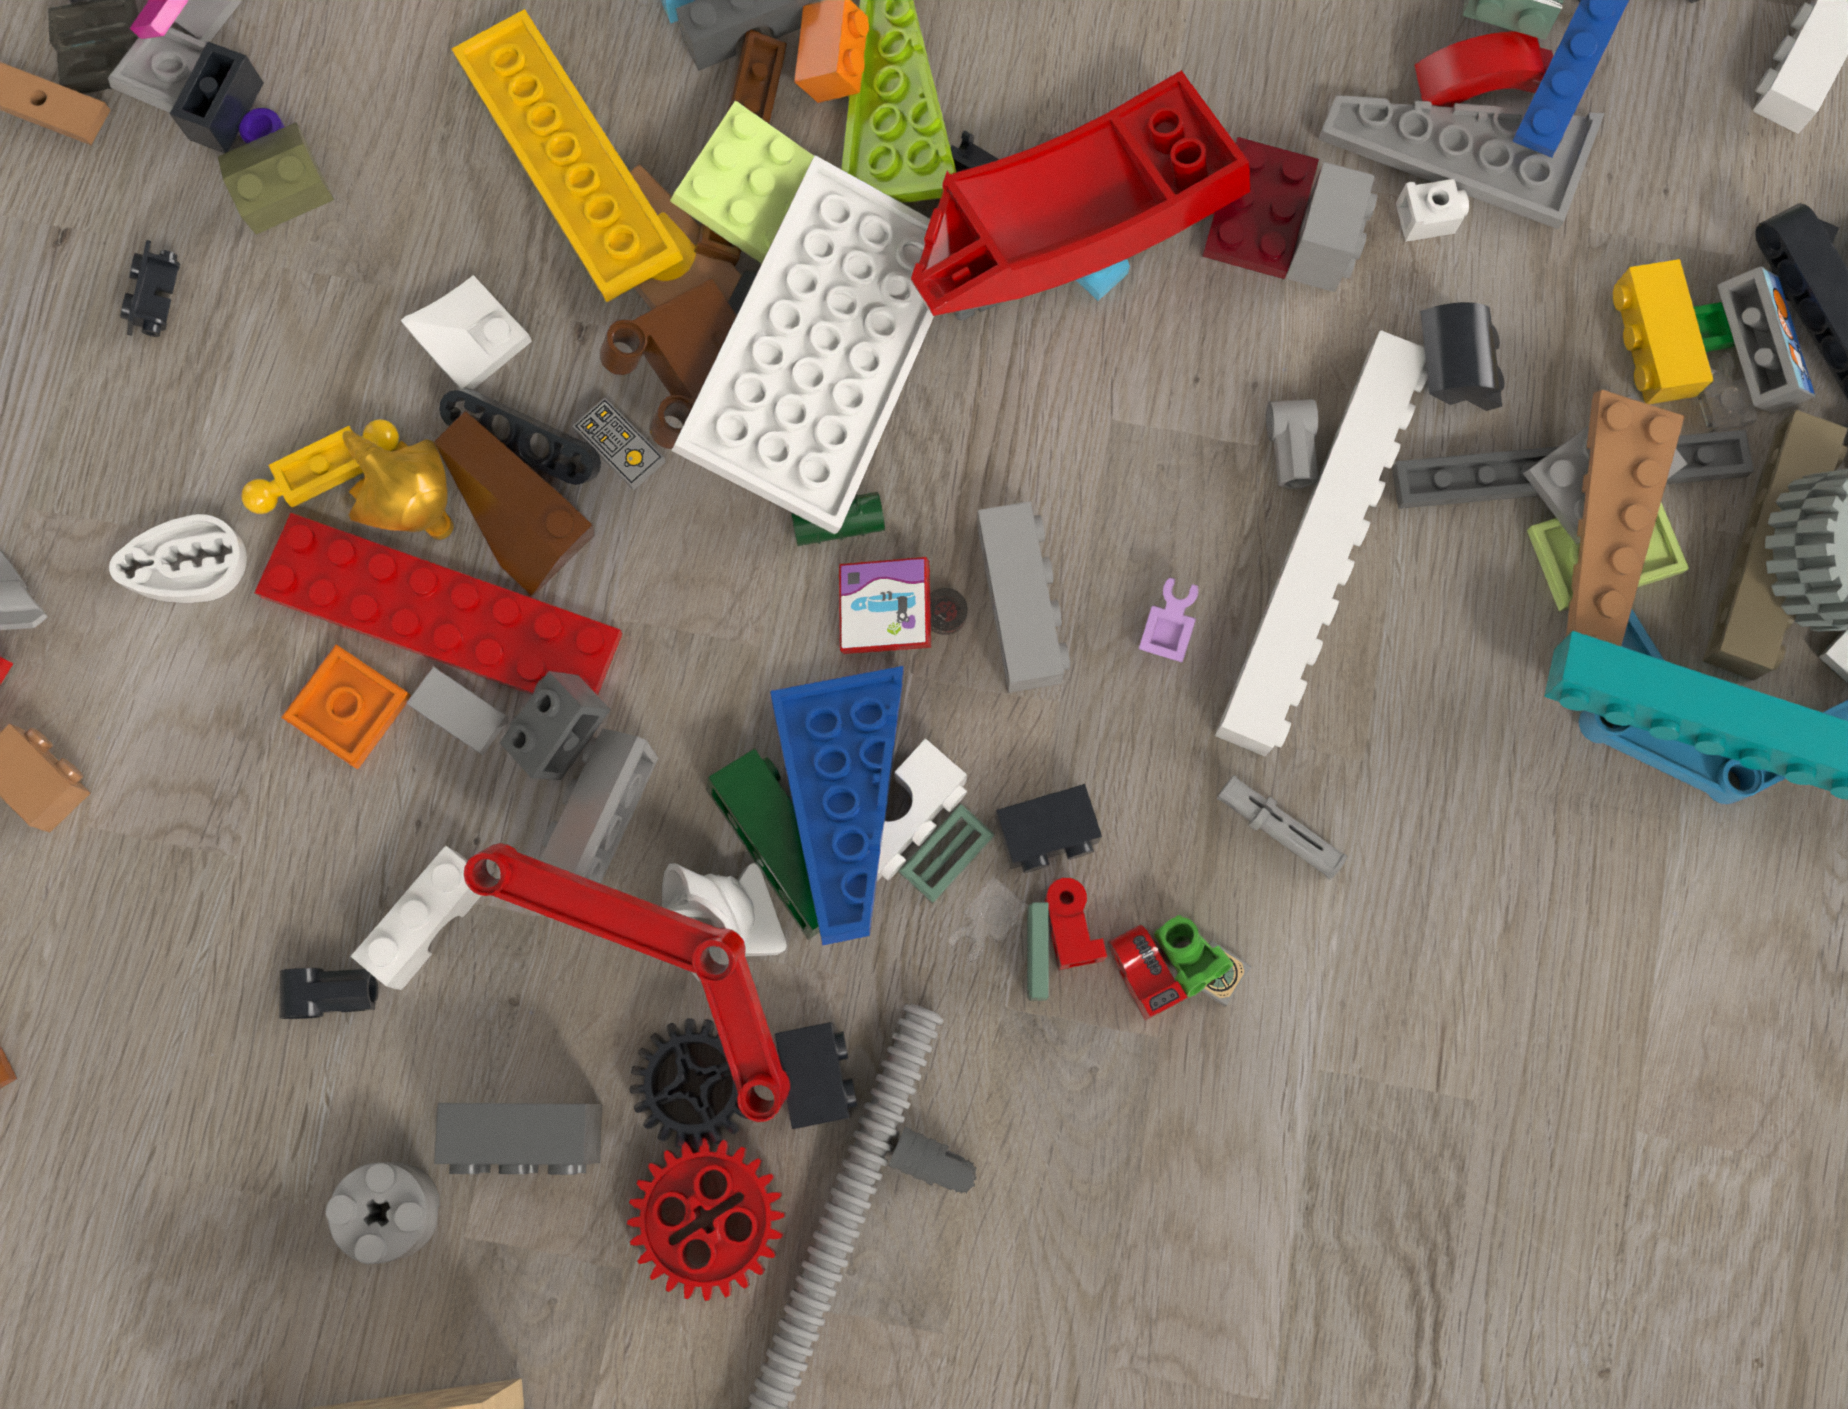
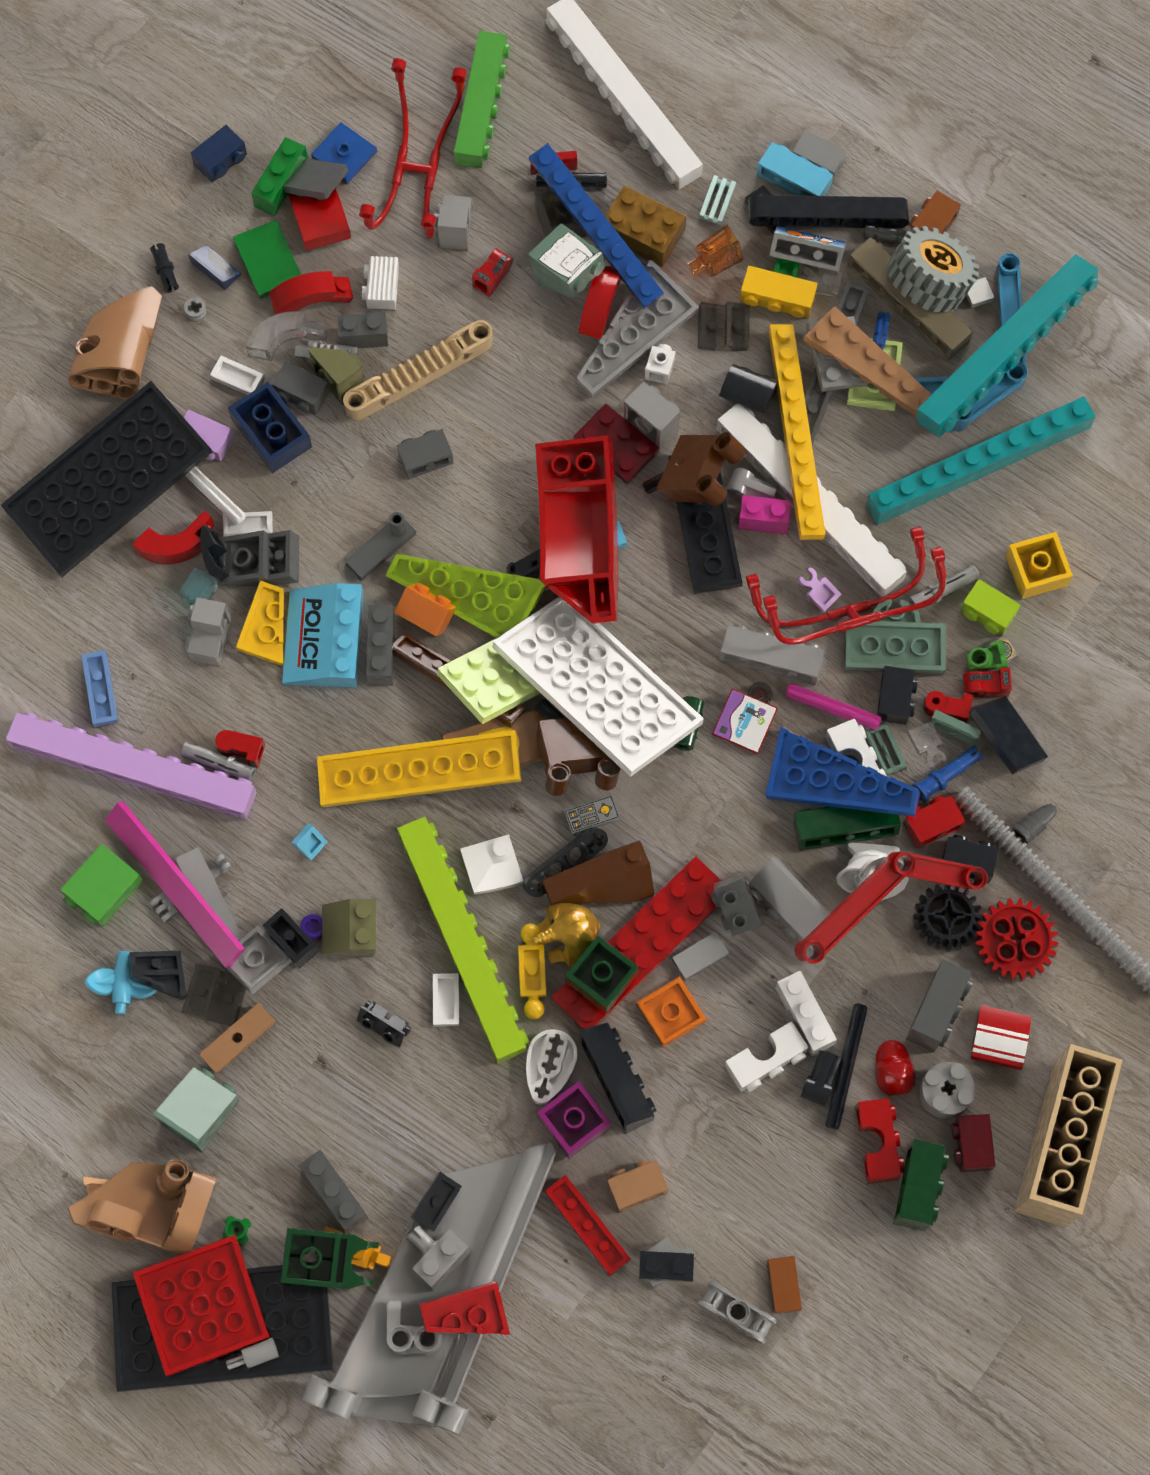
camera: 65 degrees left, 5 degrees down
(92, 631) = (574, 1119): none -> magenta brick
(185, 664) = (616, 1076): none -> black slope
(189, 1239) = (921, 1185): none -> dark green brick
(225, 364) = (446, 999): none -> white tile
(291, 867) = (749, 1071): none -> white arch
(293, 1114) = (879, 1118): none -> red arch
(312, 1300) = (974, 1143): none -> dark red brick
(323, 342) = (462, 940): none -> lime brick
(335, 562) = (601, 974): none -> dark green brick
(367, 1025) = (846, 1066): none -> black axle
(387, 60) = (309, 842): none -> medium azure plate
(398, 1109) = (894, 1069): none -> red piece
(523, 1267) = (1001, 1037): none -> slope
(854, 986) = (934, 821): none -> red brick
(932, 962) = (938, 779): none -> blue pin
(978, 736) = (833, 706): none -> dark pink axle
(1066, 1049) = (1008, 735): none -> black tile
(1142, 787) = (897, 643): none -> sand green plate
(1159, 687) = (852, 610): none -> red bar
(1198, 394) = (709, 545): none -> black plate
(1256, 479) = (764, 514): none -> dark pink brick
(1270, 326) = (695, 468): none -> reddish brown piece
(1283, 918) = (990, 608): none -> lime brick
(1404, 968) = (1038, 565): none -> yellow brick
(1423, 462) = (796, 432): none -> yellow plate
(1552, 278) = (723, 326): none -> clear smoke slope
(1552, 792) = (980, 460): none -> teal brick
(1657, 78) = (646, 225): none -> pearl gold brick
(1673, 205) = (717, 253): none -> clear orange torso
(1689, 523) = (881, 329): none -> blue axle
(1732, 172) = (723, 184): none -> light aqua tile

